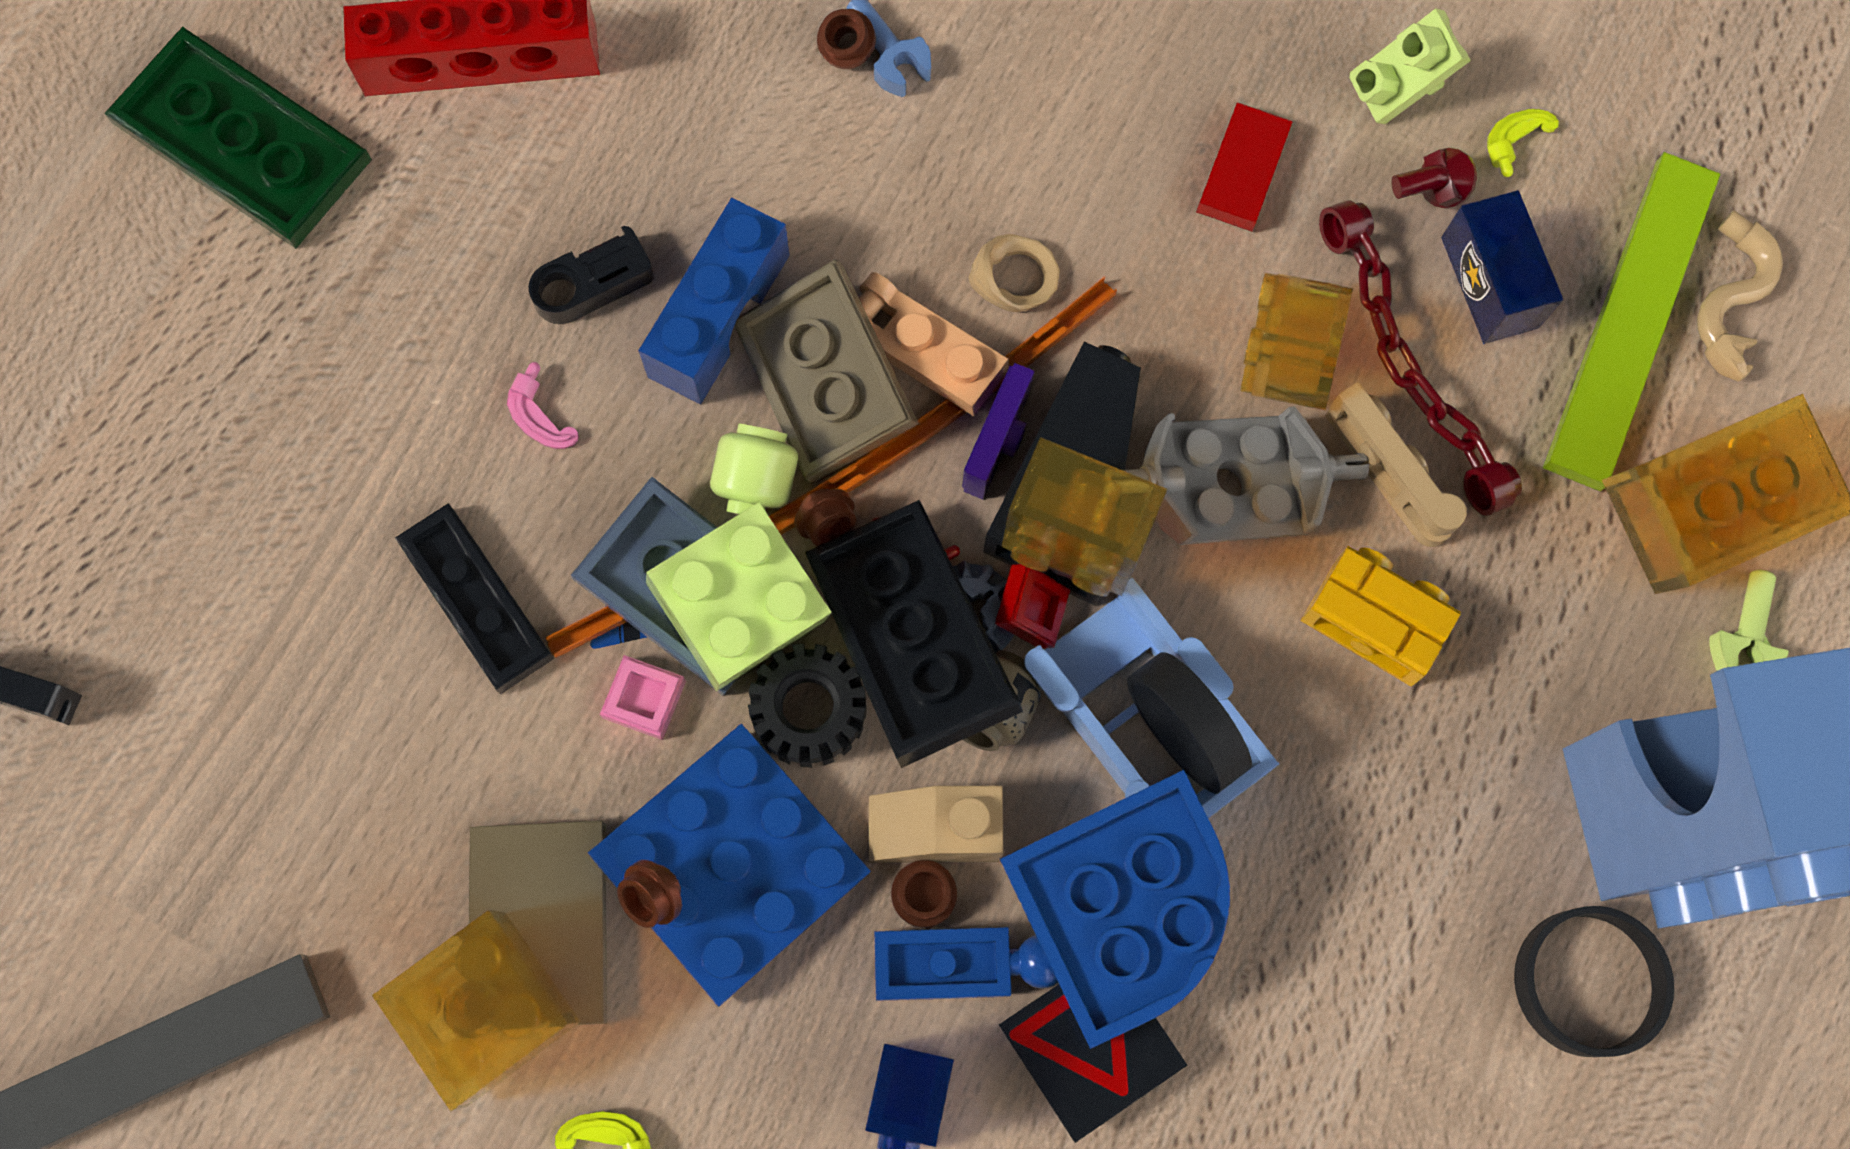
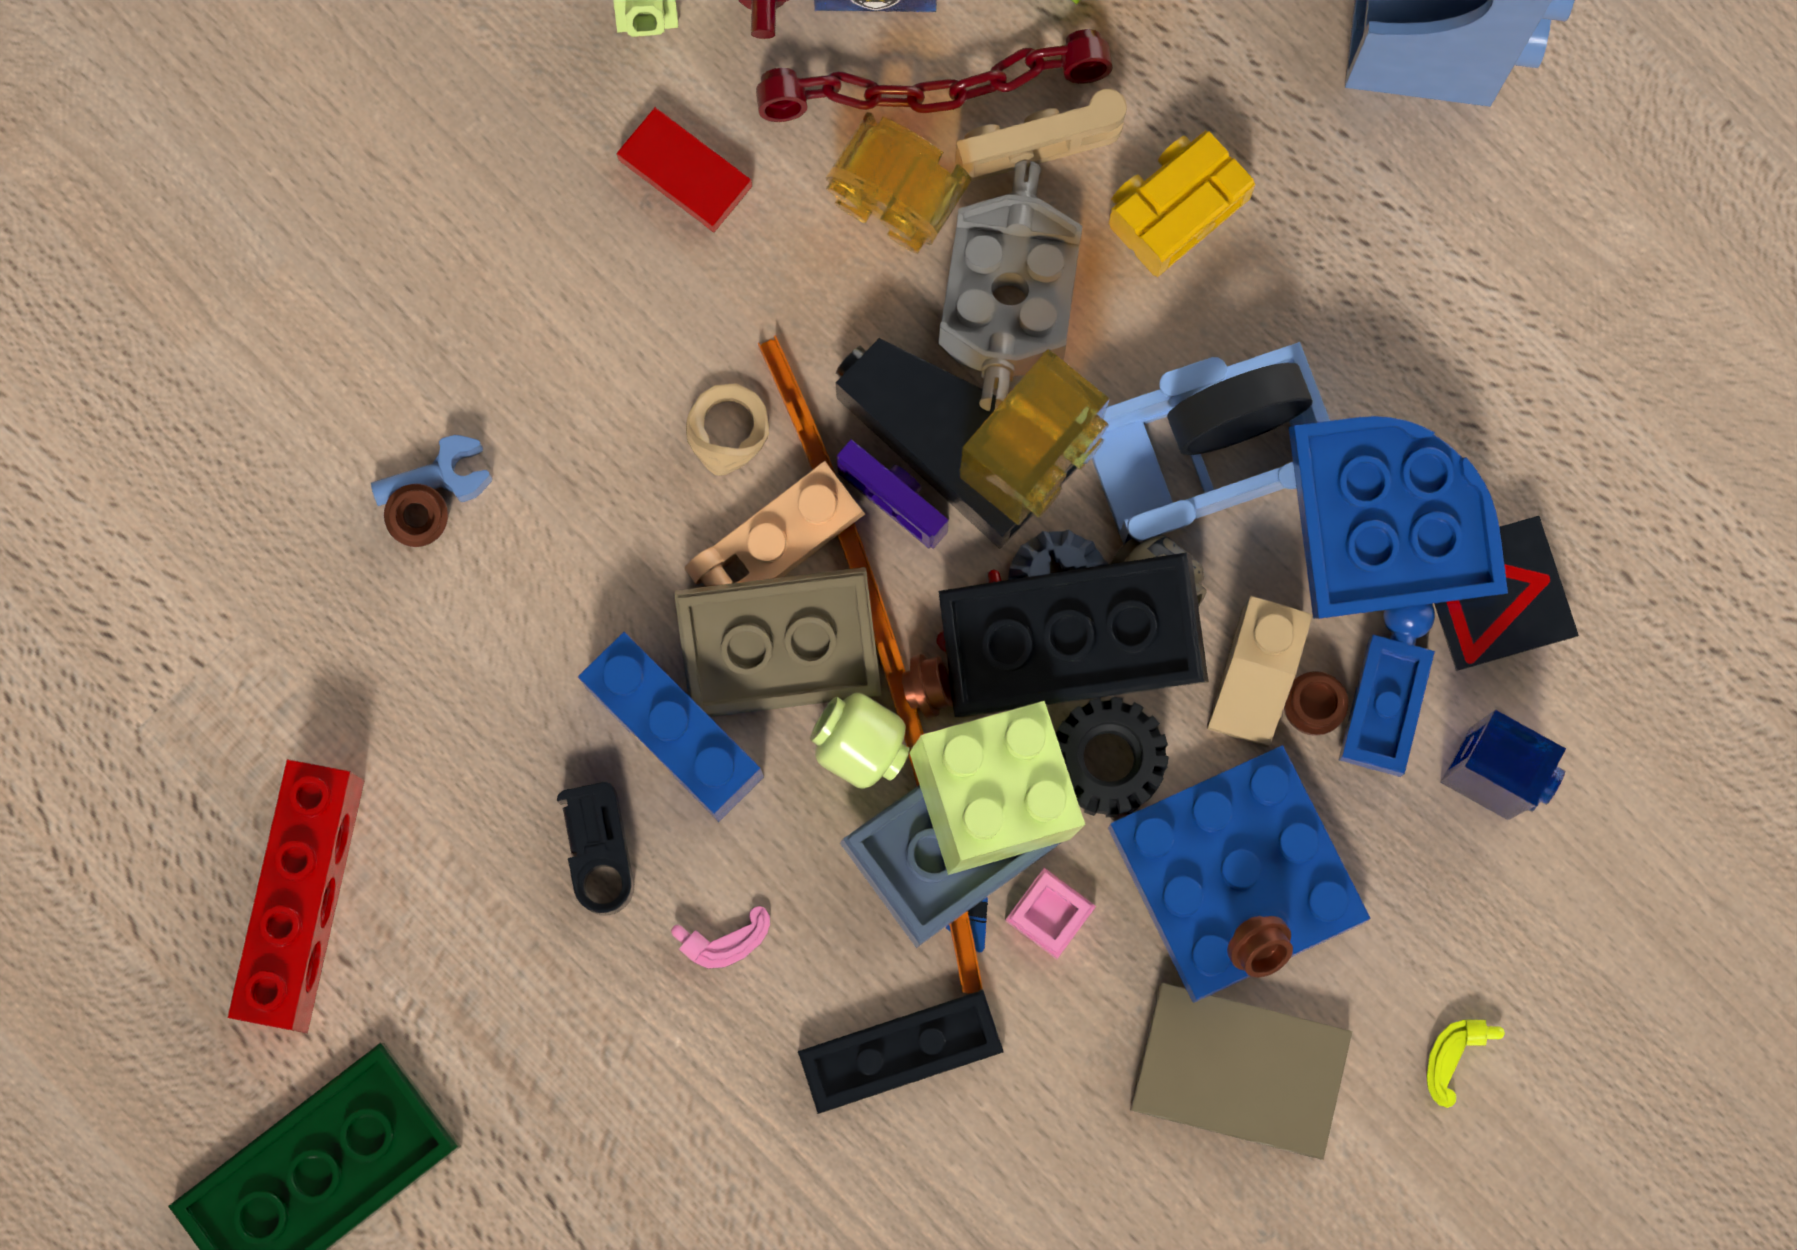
camera: 70 degrees left, 5 degrees up
(476, 1009) = (1316, 1138): clear yellow brick -> none
(1032, 606) = (1078, 518): red tile -> none
(1653, 953) = (1589, 87): black tyre -> none

